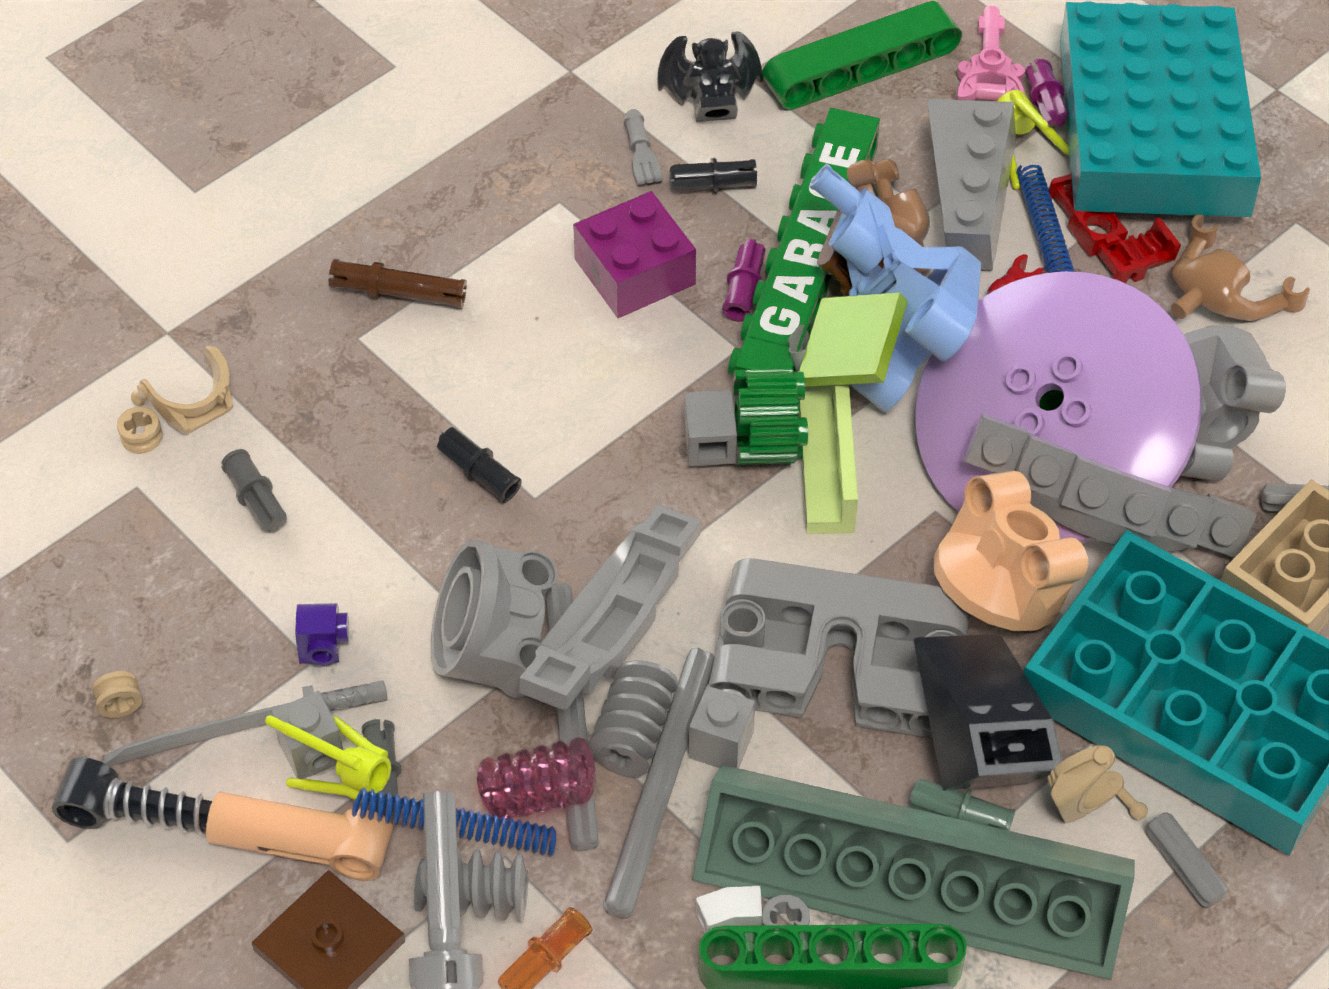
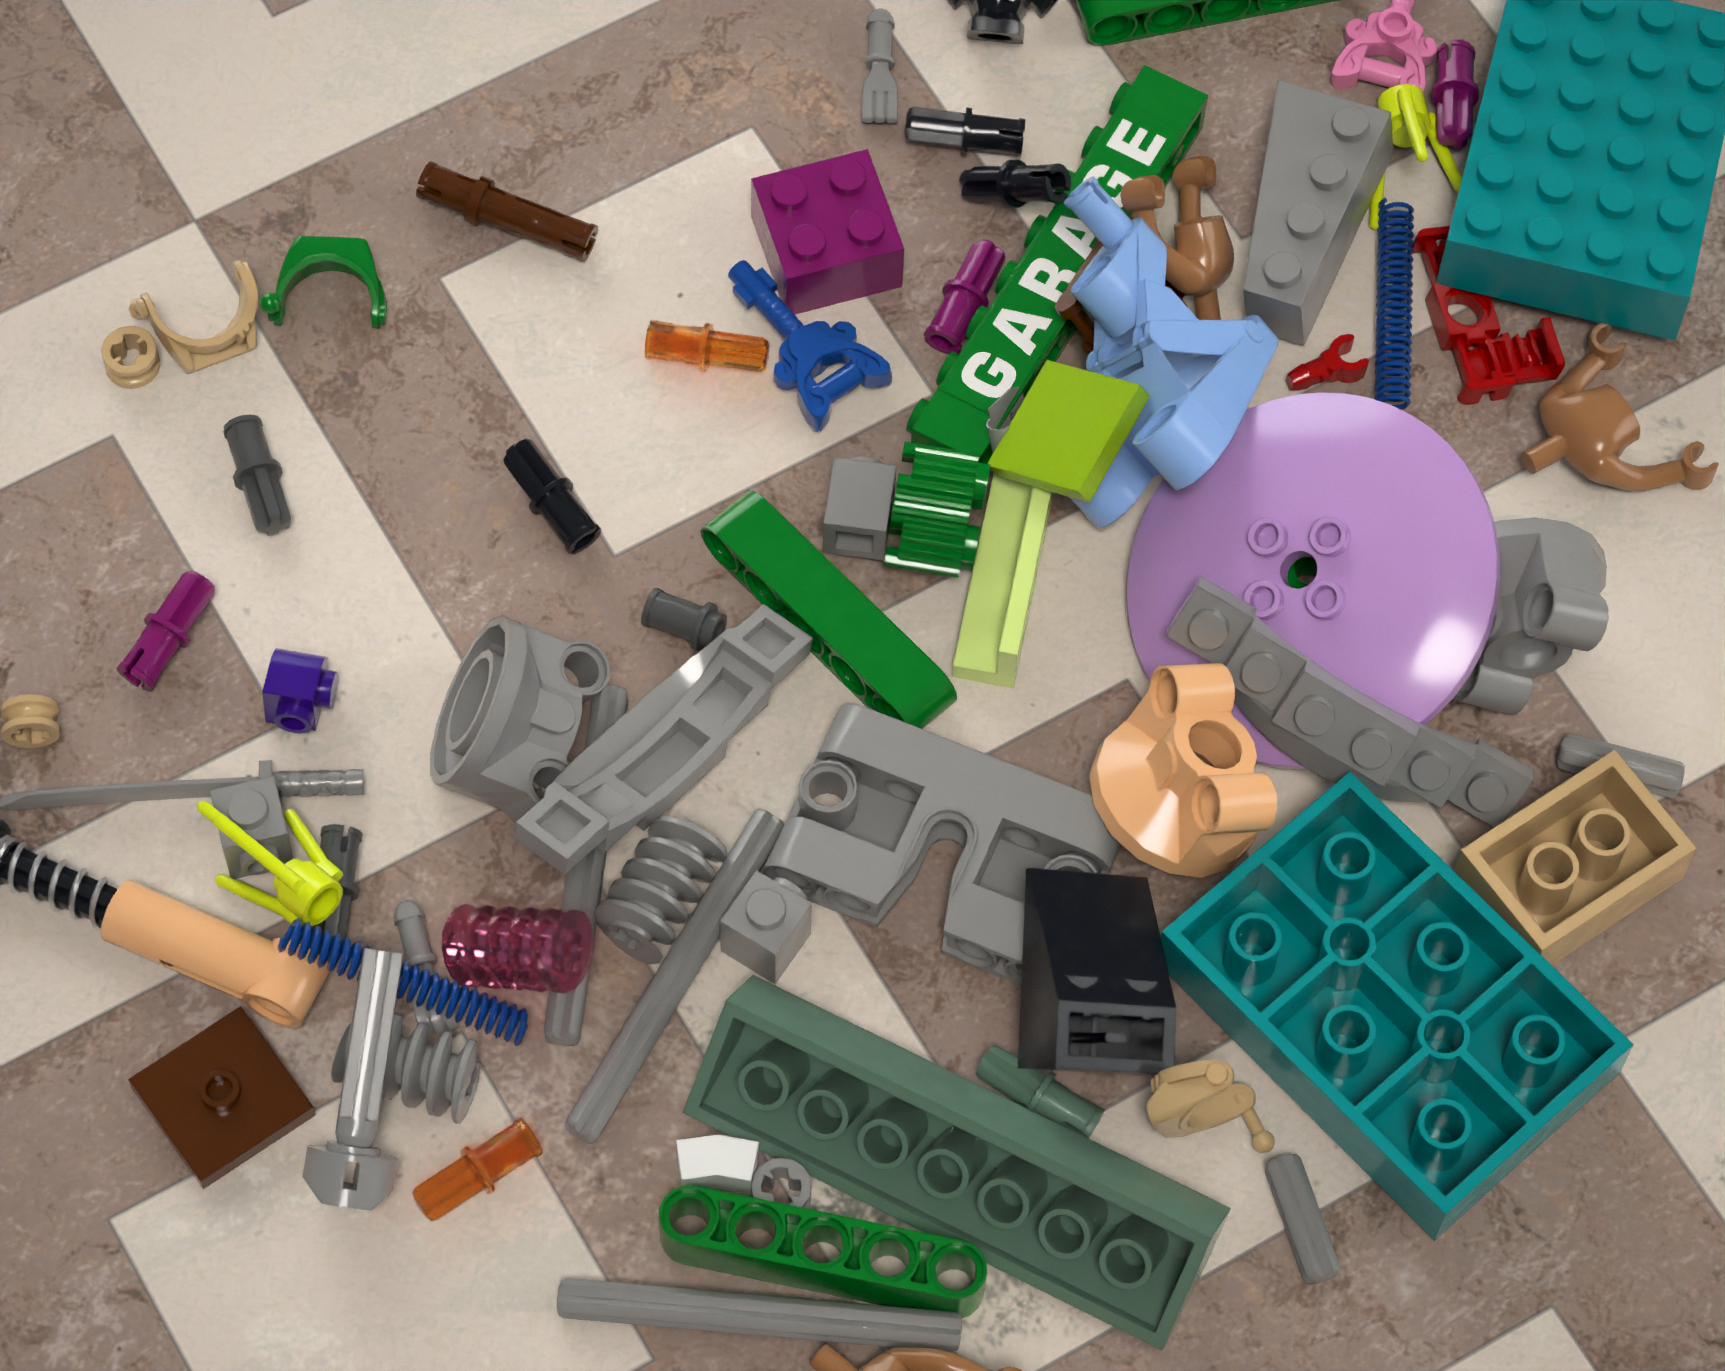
camera: 10 degrees right, 10 degrees up
(209, 611) = (166, 630): none -> magenta axle
(272, 334) = (321, 254): none -> green helmet
(445, 780) = (416, 945): none -> light grey piece
(567, 345) = (705, 347): none -> clear orange axle
(599, 528) = (683, 618): none -> dark grey pin
(643, 333) = (810, 349): none -> blue piece
(728, 514) = (845, 626): none -> green beam
(761, 197) = (1015, 183): none -> black axle

